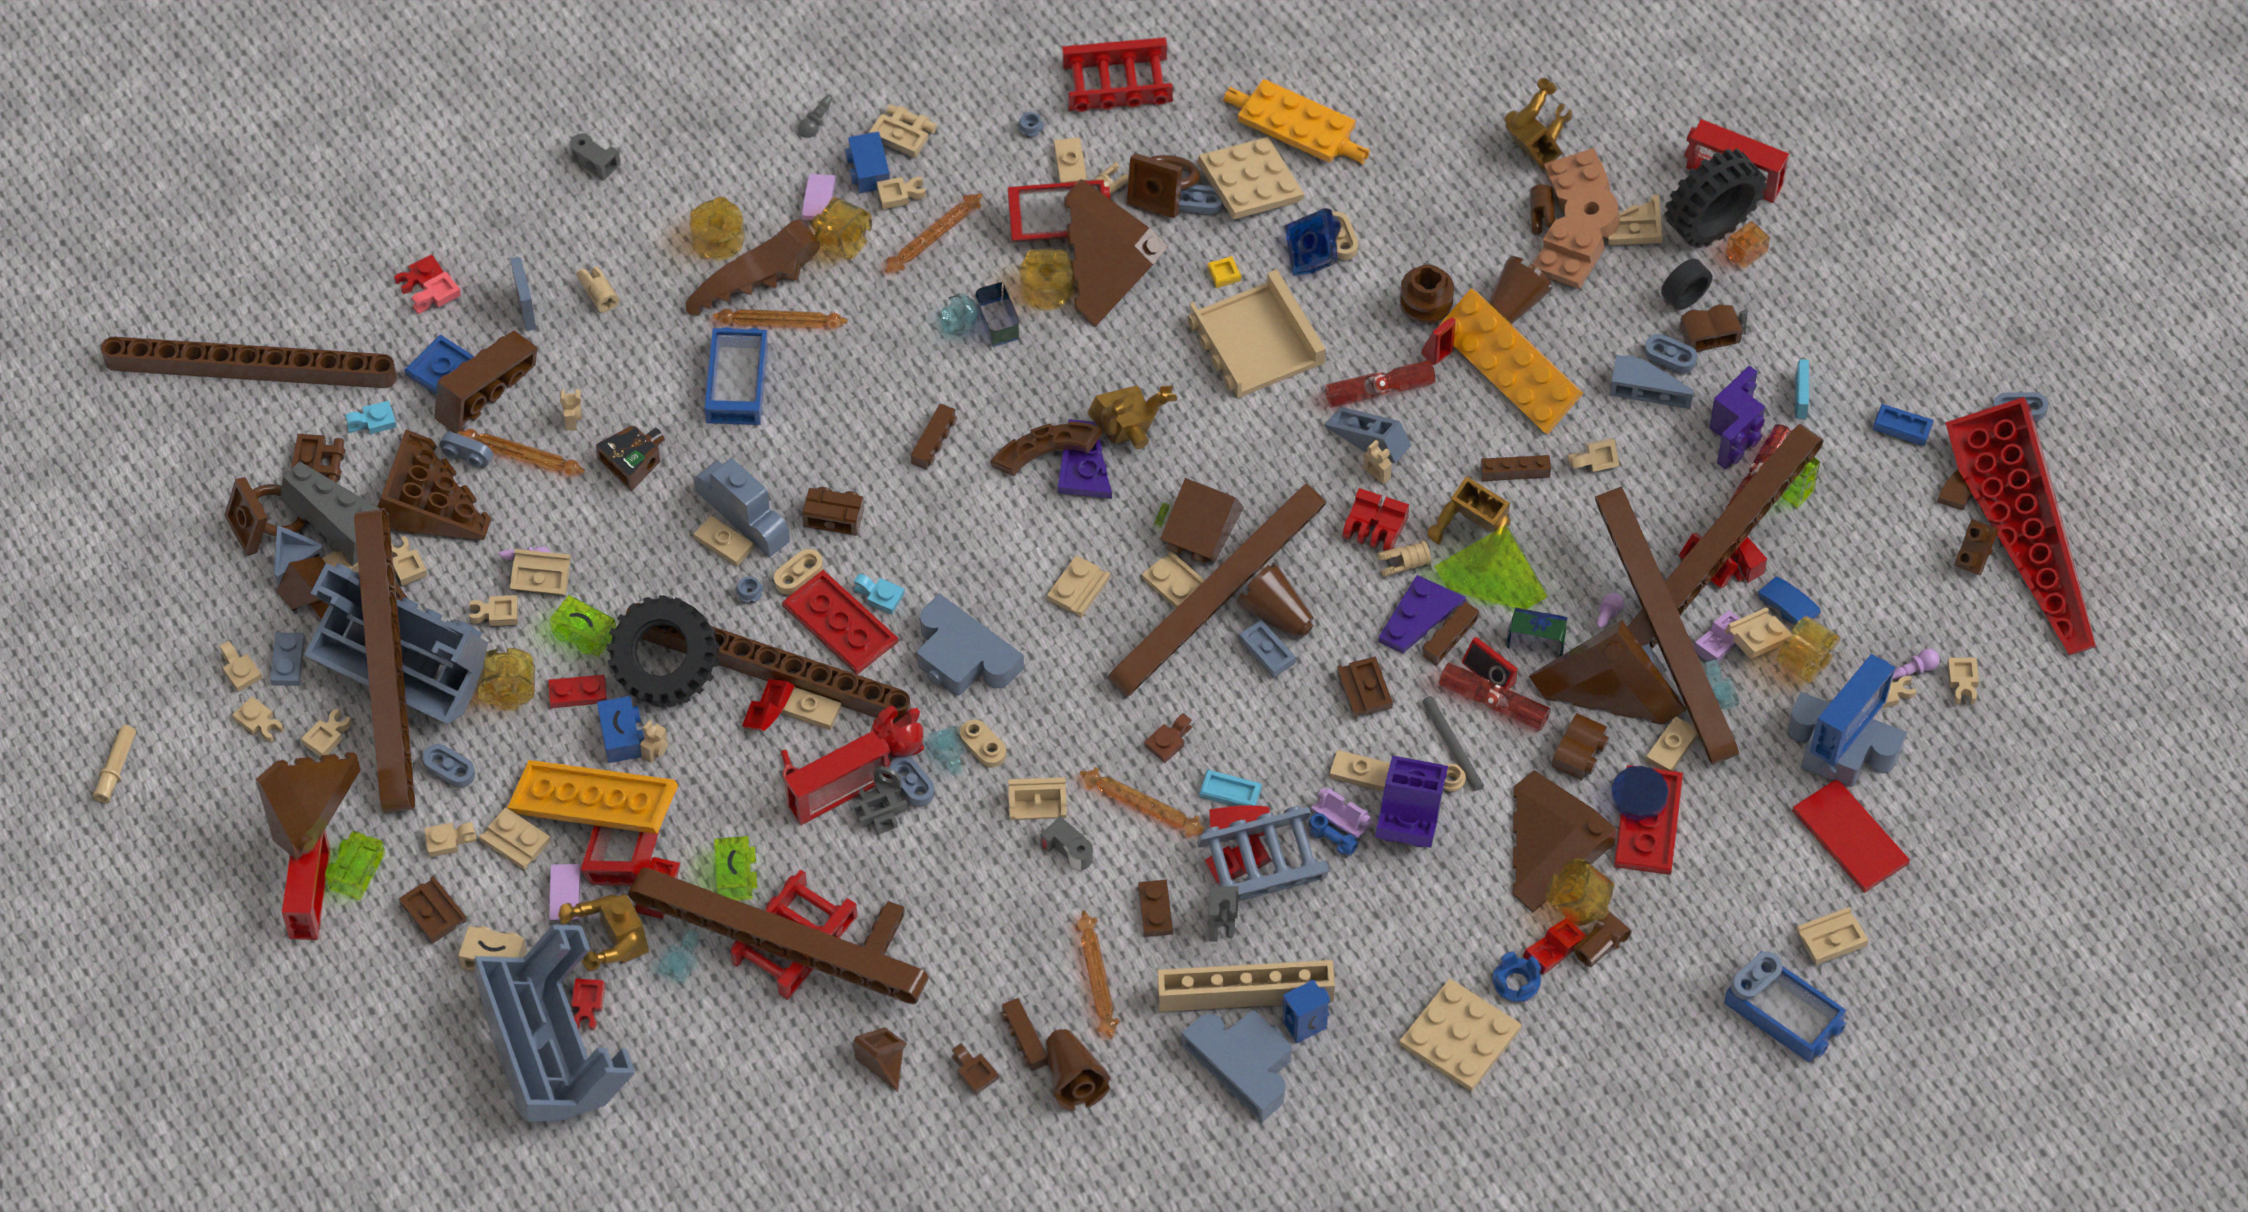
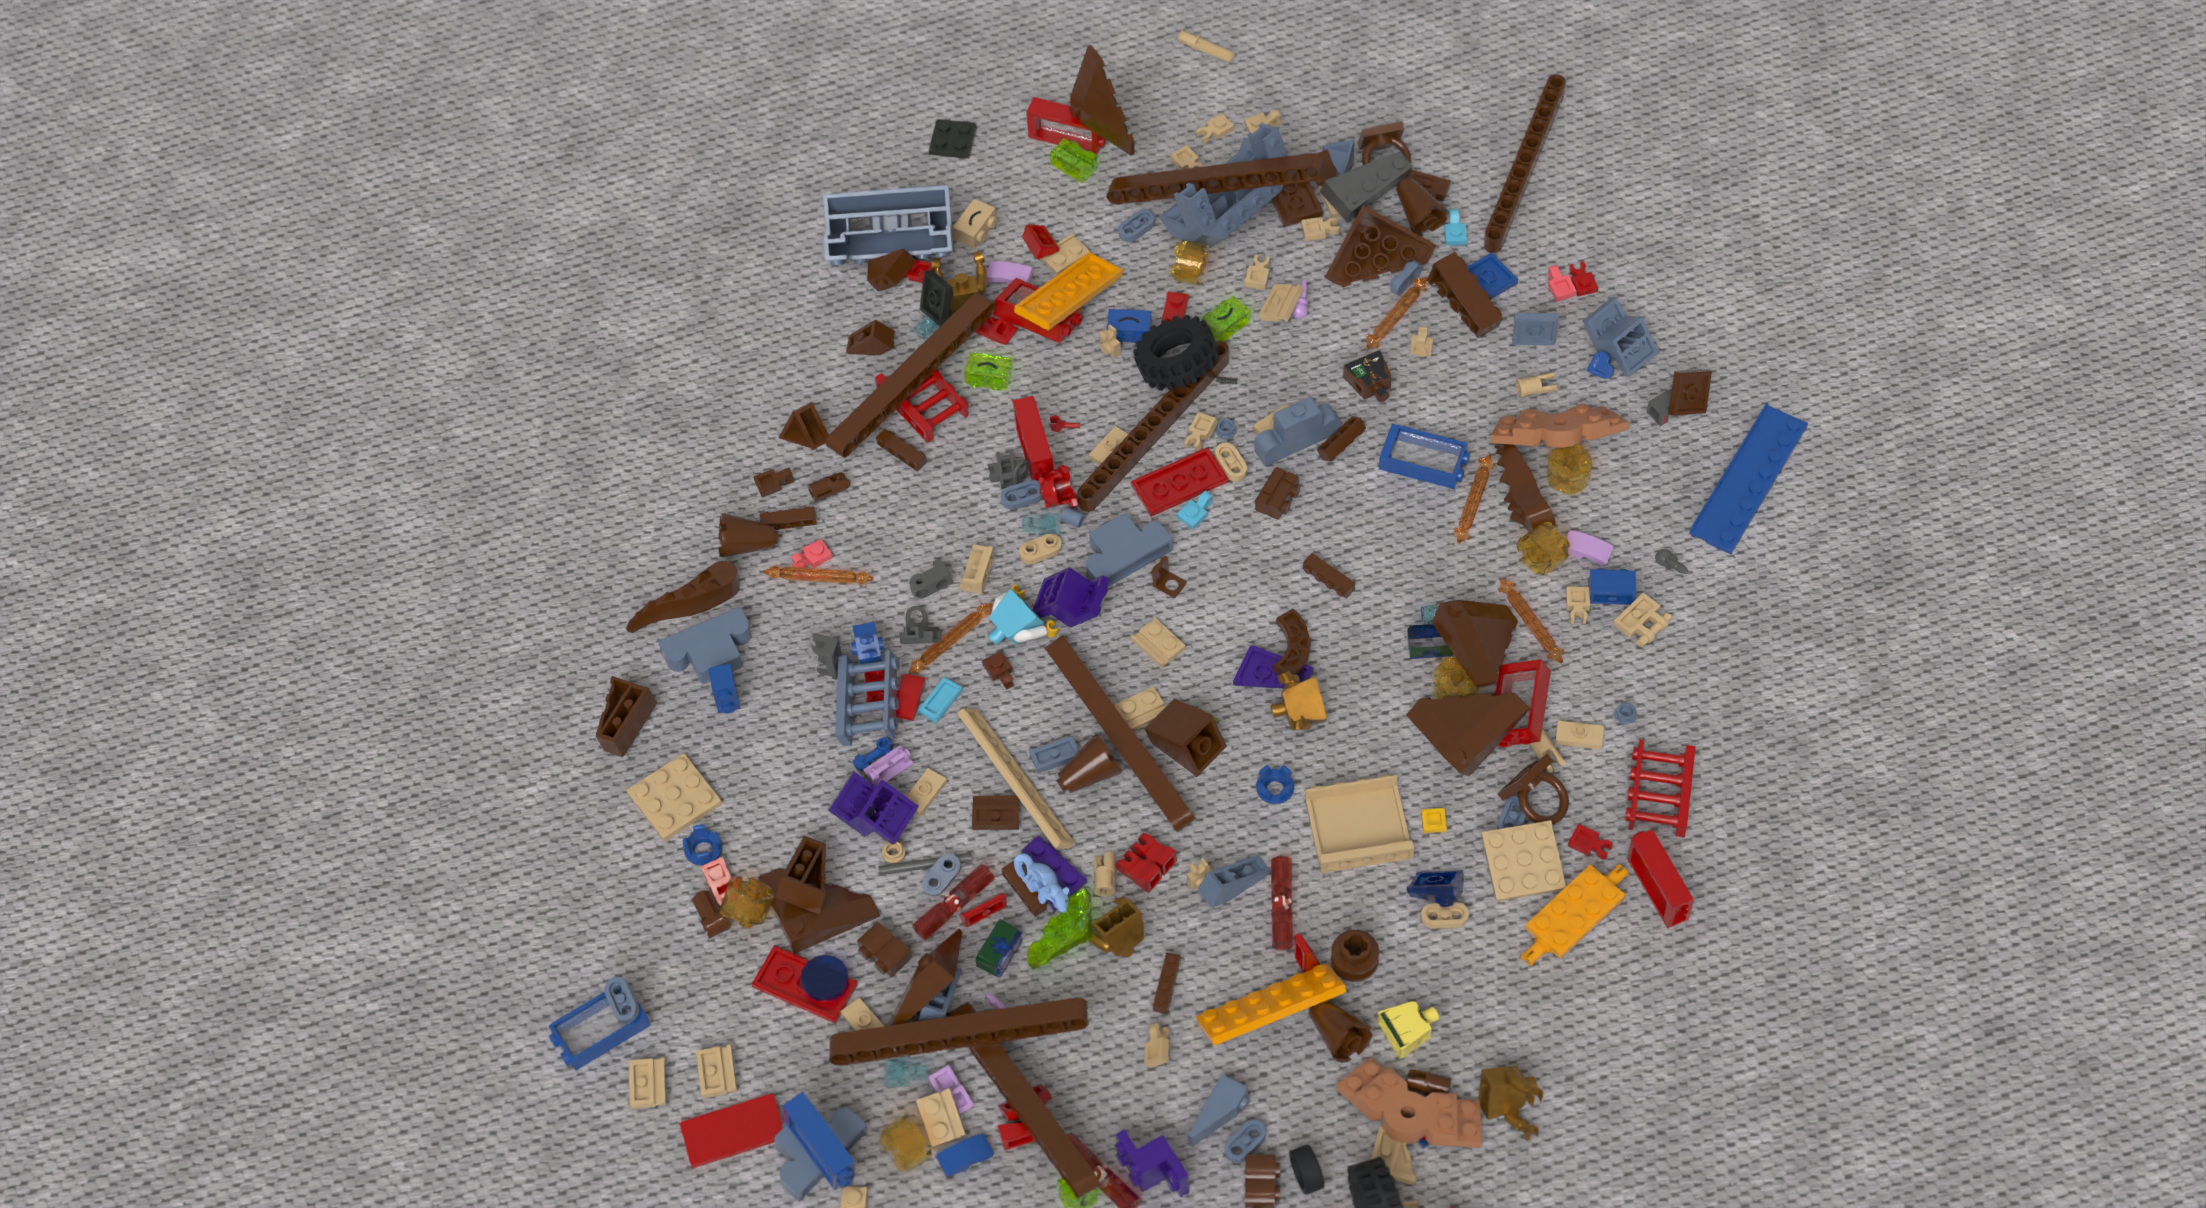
camera: 110 degrees right, 0 degrees up
(343, 1029) = (952, 138): none -> pearl dark grey plate
(358, 448) = (1420, 207): none -> reddish brown cone
(432, 909) = (1023, 198): reddish brown plate -> none
(445, 838) = (1078, 216): tan plate -> none
(503, 870) = (1039, 241): none -> red slope
(510, 211) = (1620, 336): none -> sand blue bracket
(552, 229) = (1601, 365): none -> blue tile
(582, 125) = (1690, 392): none -> reddish brown plate
(603, 1027) = (889, 269): none -> reddish brown slope
(644, 945) = (936, 297): none -> pearl dark grey plate
(672, 235) = (1558, 428): none -> nougat plate
(676, 66) = (1748, 479): none -> blue plate
(709, 454) = (1341, 438): none -> reddish brown piece
(720, 1022) = (871, 339): none -> reddish brown slope
(756, 612) = (1201, 428): none -> tan plate
(774, 699) = (1115, 417): red slope -> none
(929, 717) = (1072, 517): none -> sand blue hinge
(964, 1003) = (828, 486): none -> reddish brown hinge
(986, 599) = (1161, 575): none -> reddish brown bracket
(989, 264) = (1476, 636): none -> reddish brown slope
(1054, 680) = (1071, 597): none -> dark purple bracket
(1069, 989) = (812, 554): none -> coral plate
(1098, 733) = (1017, 619): none -> medium azure torso
(1145, 839) = (919, 632): none -> dark grey piece
(1155, 908) = (846, 620): reddish brown plate -> none
(1161, 1087) = (701, 594): none -> reddish brown animal
(1193, 873) = (867, 643): none -> blue hinge
(1206, 128) = (1587, 840): none -> red plate
(1236, 49) = (1660, 878): none -> red window
(1238, 984) = (763, 659): tan brick -> none
(1239, 413) = (1280, 775): none -> blue piece
(1312, 678) = (1016, 779): none -> tan tile
(1377, 1117) = (624, 715): none -> reddish brown wedge
(1442, 607) = (1043, 880): none -> light blue animal
(1464, 719) = (941, 874): none -> sand blue plate
(1487, 239) = (1407, 1026): none -> light yellow torso
(1528, 840) = (805, 876): none -> reddish brown wedge
(1790, 870) = (716, 1071): none -> tan plate

